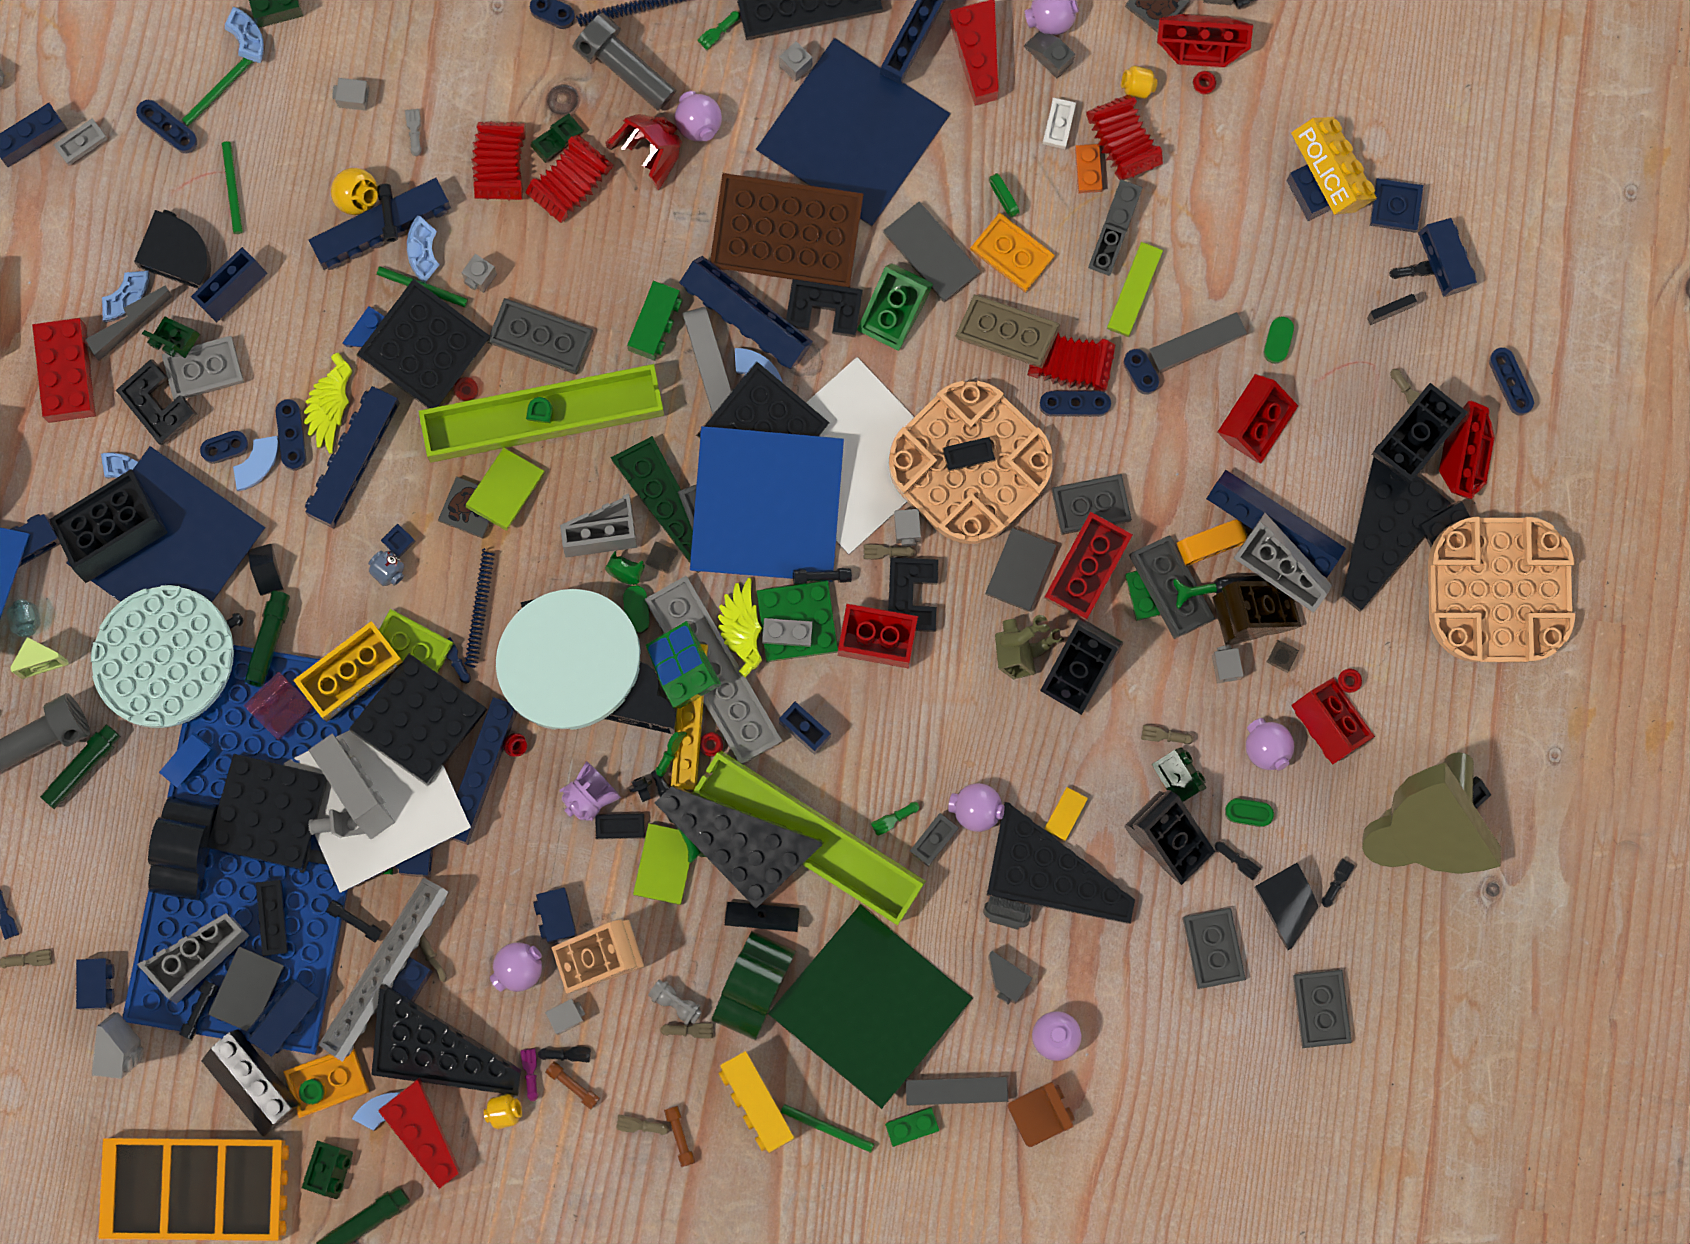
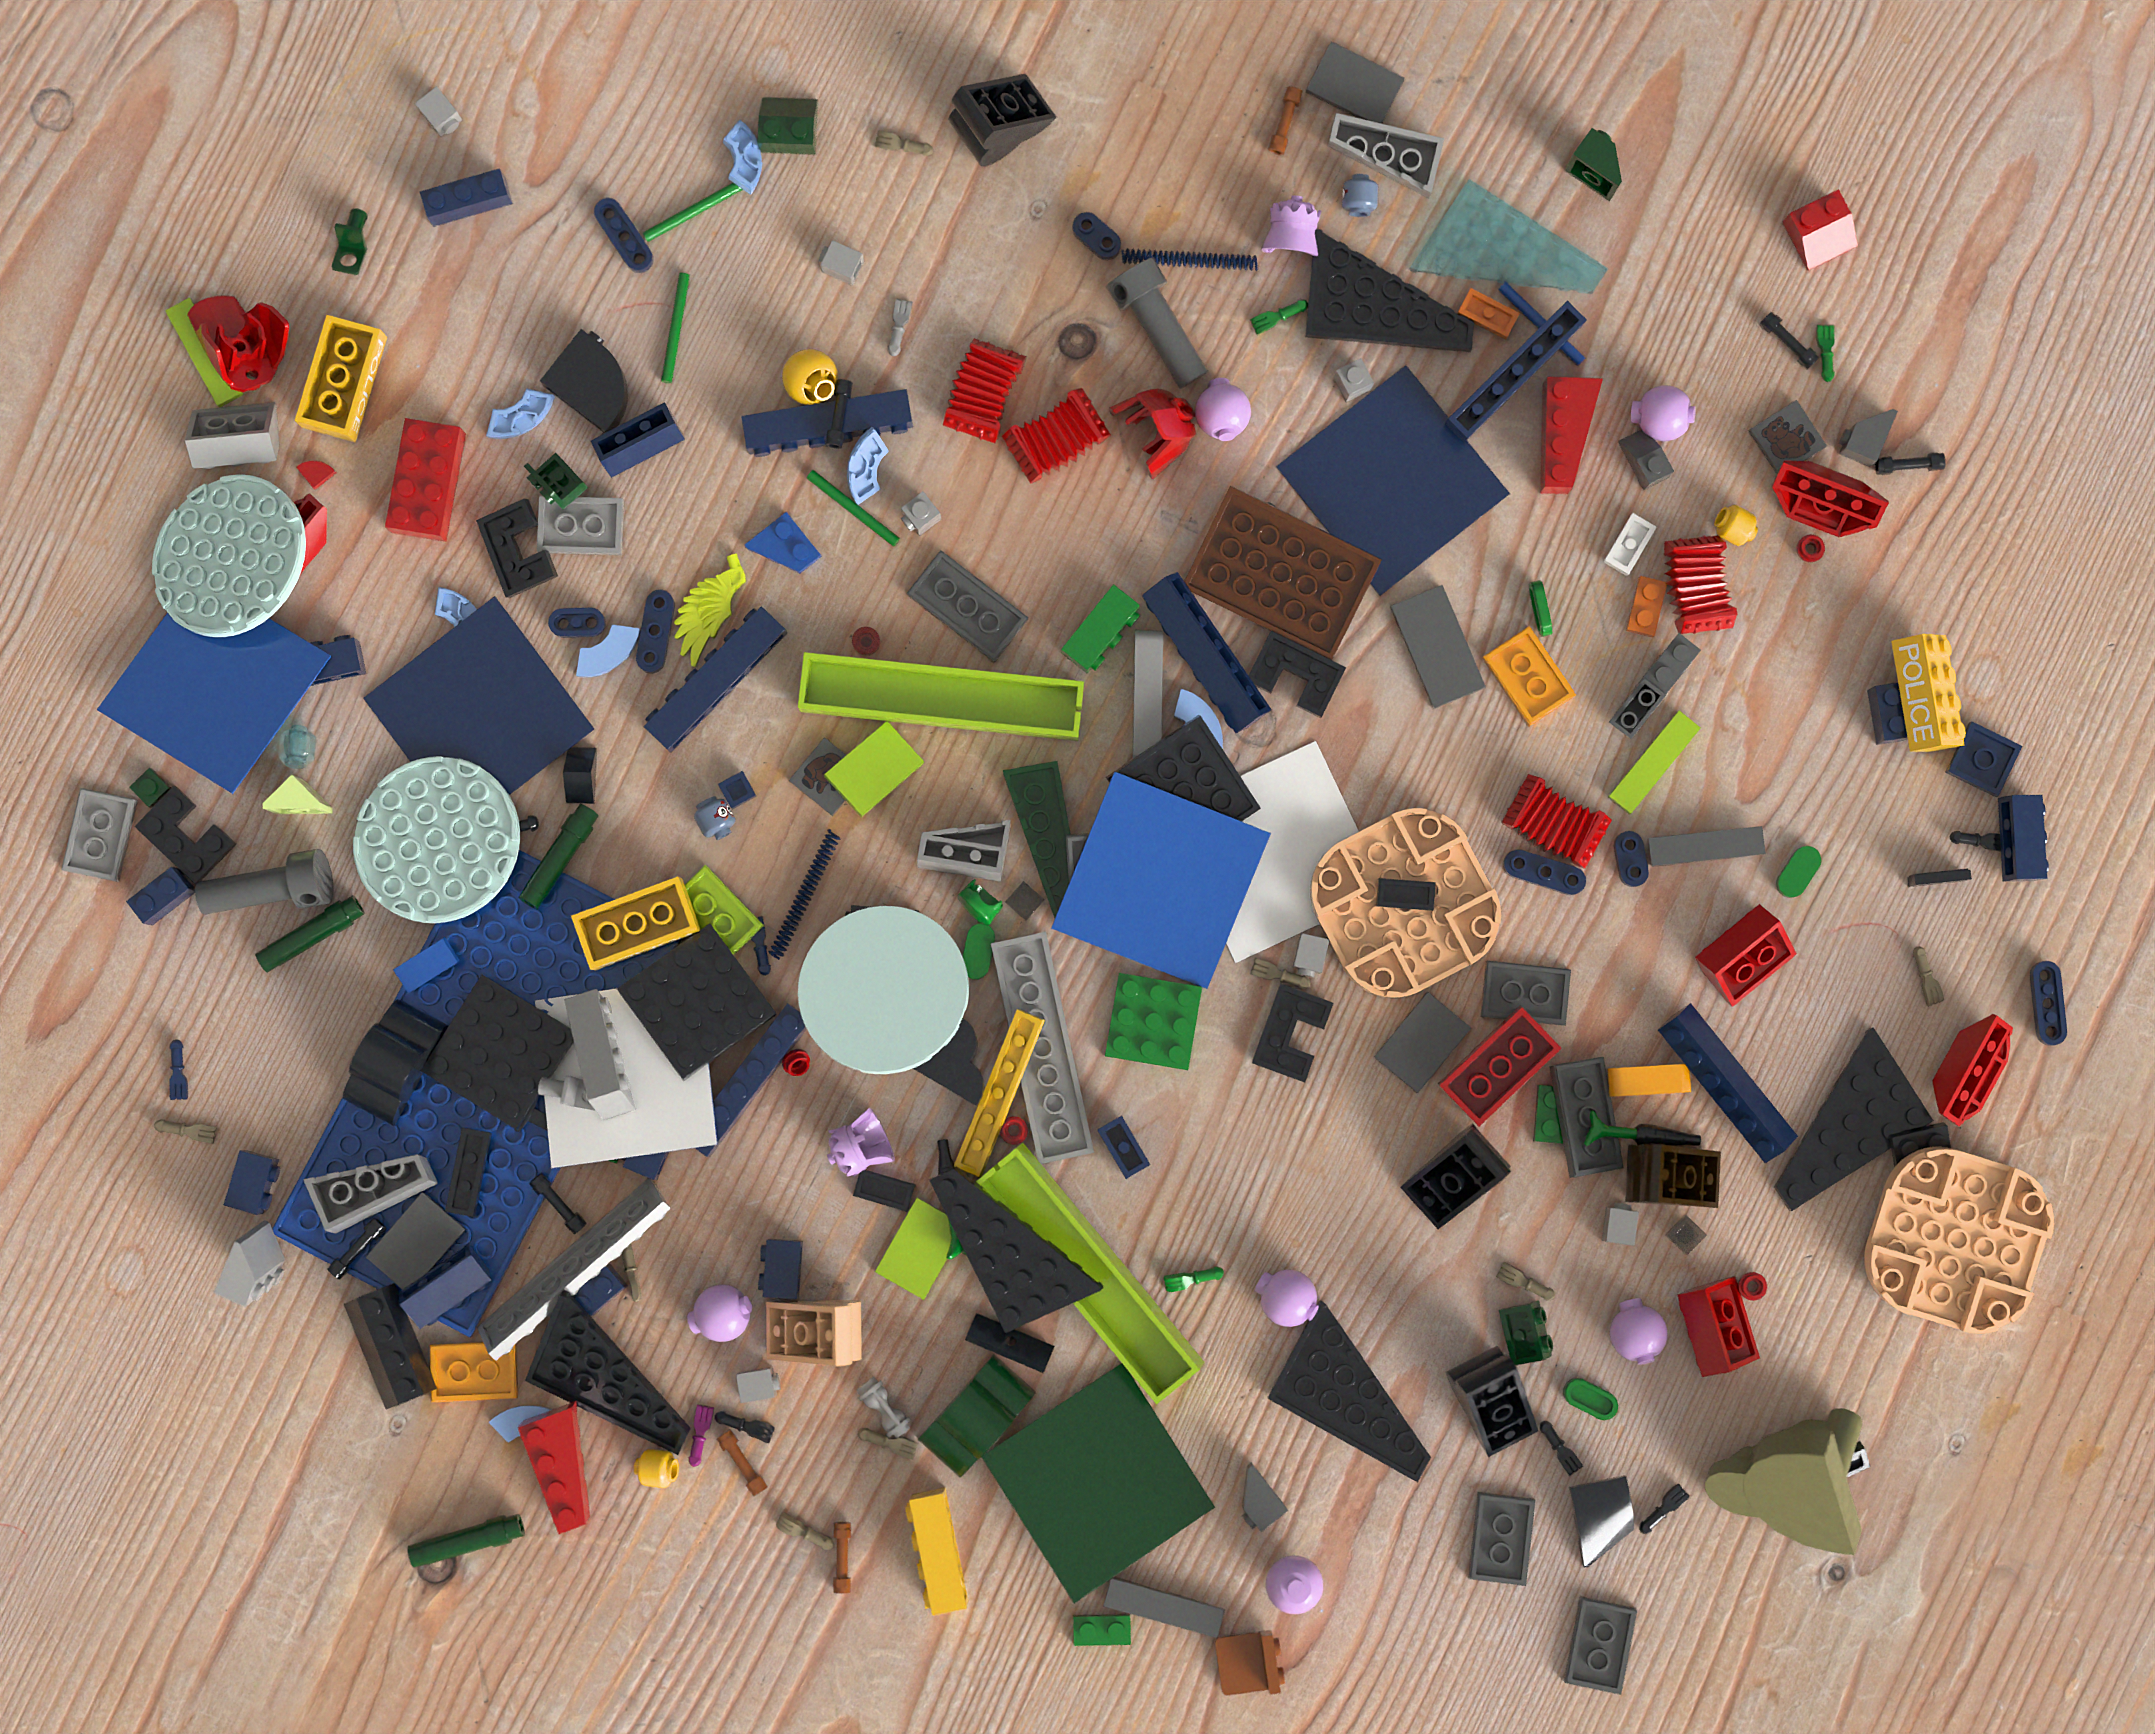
camera: 20 degrees right, 5 degrees up
(80, 141) = (522, 223): light grey plate -> none
(107, 526) = (420, 673): black slope -> none
(137, 313) = (525, 439): dark grey slope -> none
(193, 1189) = (291, 1445): clear smoke window -> none
(278, 706) = (546, 936): clear pink plate -> none
(311, 1091) = (453, 1379): green tile -> none
(327, 1170) = (444, 1470): dark green bracket -> none
(423, 345) = (833, 577): black plate -> none
(539, 410) = (940, 693): green tile -> none
(556, 138) = (1056, 384): dark green slope -> none
(640, 784) = (921, 1152): black plate -> none
(673, 745) = (963, 1129): green piece -> none
(682, 666) = (1008, 1035): slope -> none
(741, 627) = (1089, 1009): neon yellow animal -> none
(787, 632) = (1138, 1033): light grey plate -> none
(827, 1128) = (1007, 1600): green bar -> none
(843, 575) = (1219, 985): black bar -> none
(877, 636) = (1238, 1069): red slope -> none
(894, 306) = (1376, 697): green slope -> none
(934, 839) = (1228, 1317): dark grey plate -> none
(1007, 912) = (1284, 1426): dark grey piece -> none
(1008, 331) = (1495, 767): dark tan tile -> none
(1016, 652) = (1389, 1133): olive torso -> none
(1065, 814) = (1384, 1334): yellow tile -> none
(1282, 564) = (1720, 1136): light grey wedge -> none
(1419, 433) = (1924, 1035): black brick -> none

